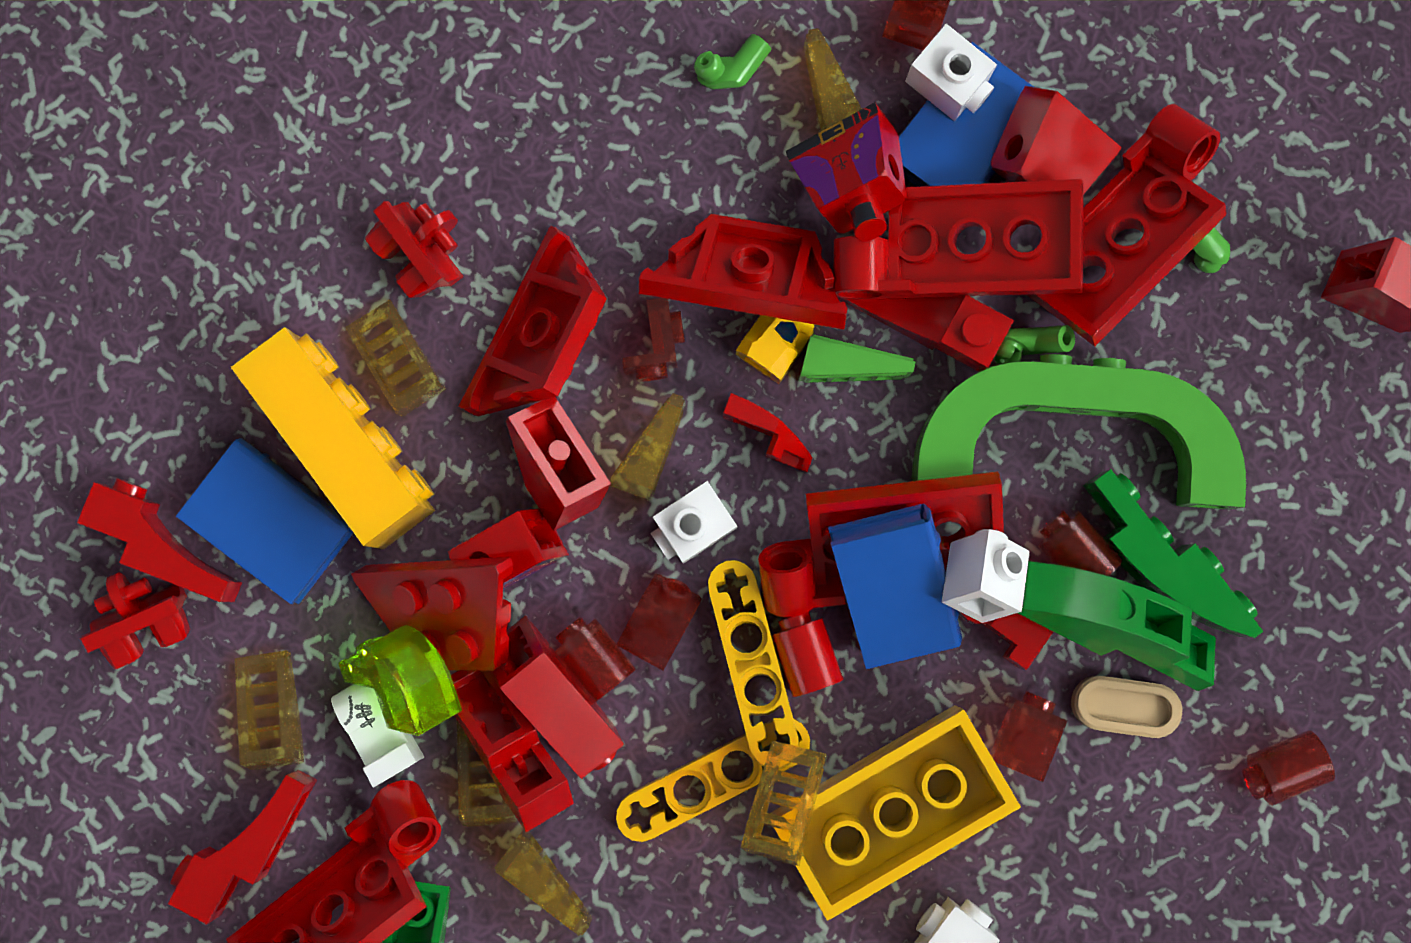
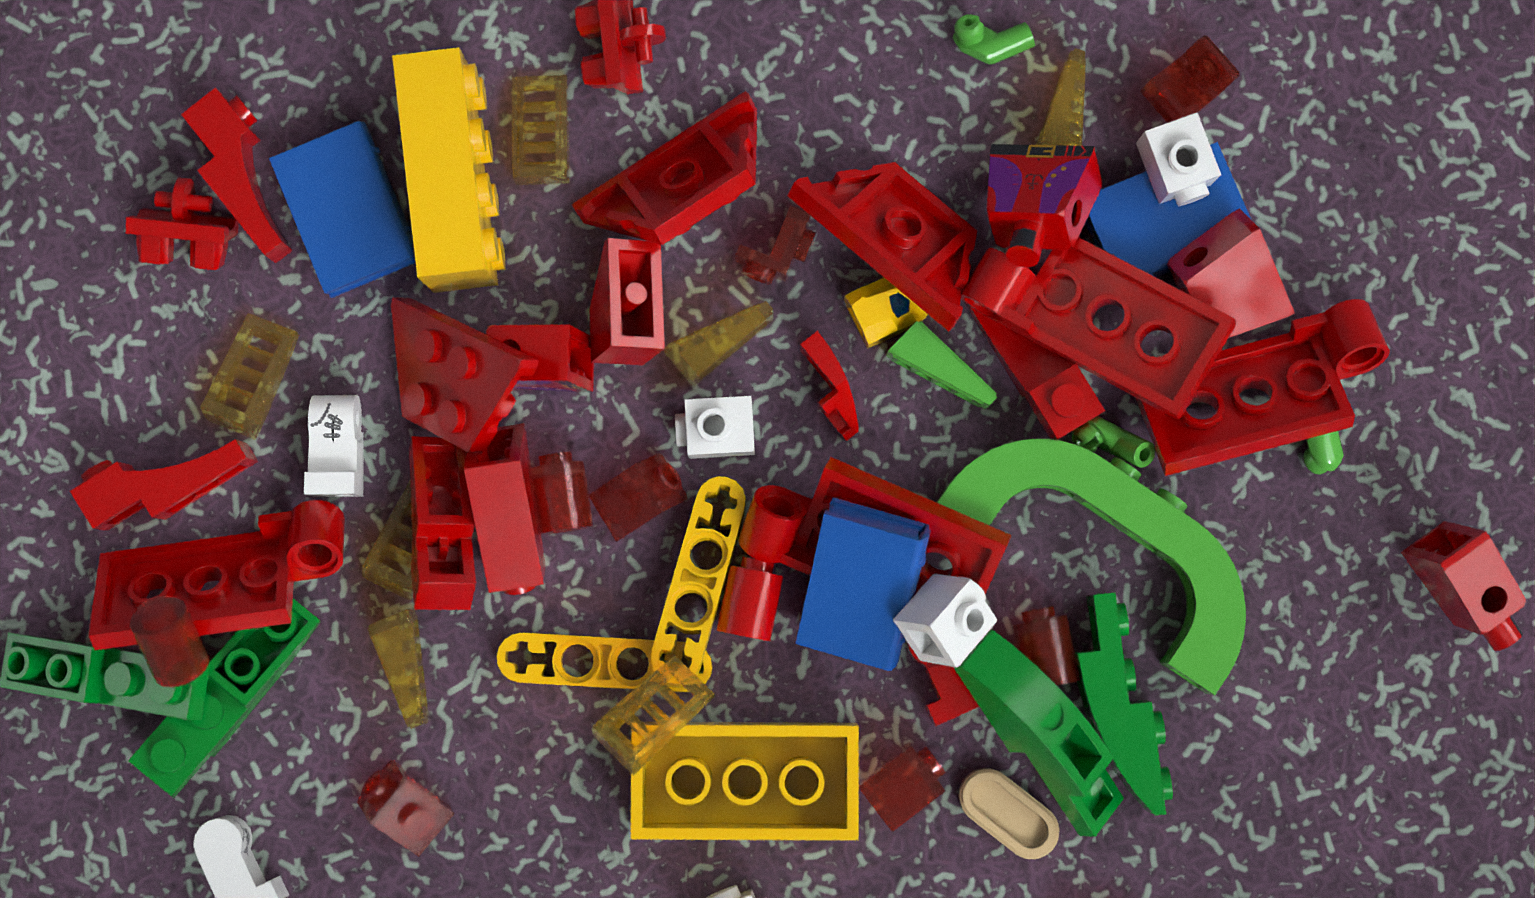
camera: 30 degrees right, 0 degrees up
(407, 679) = (388, 416): clear neon green brick -> none

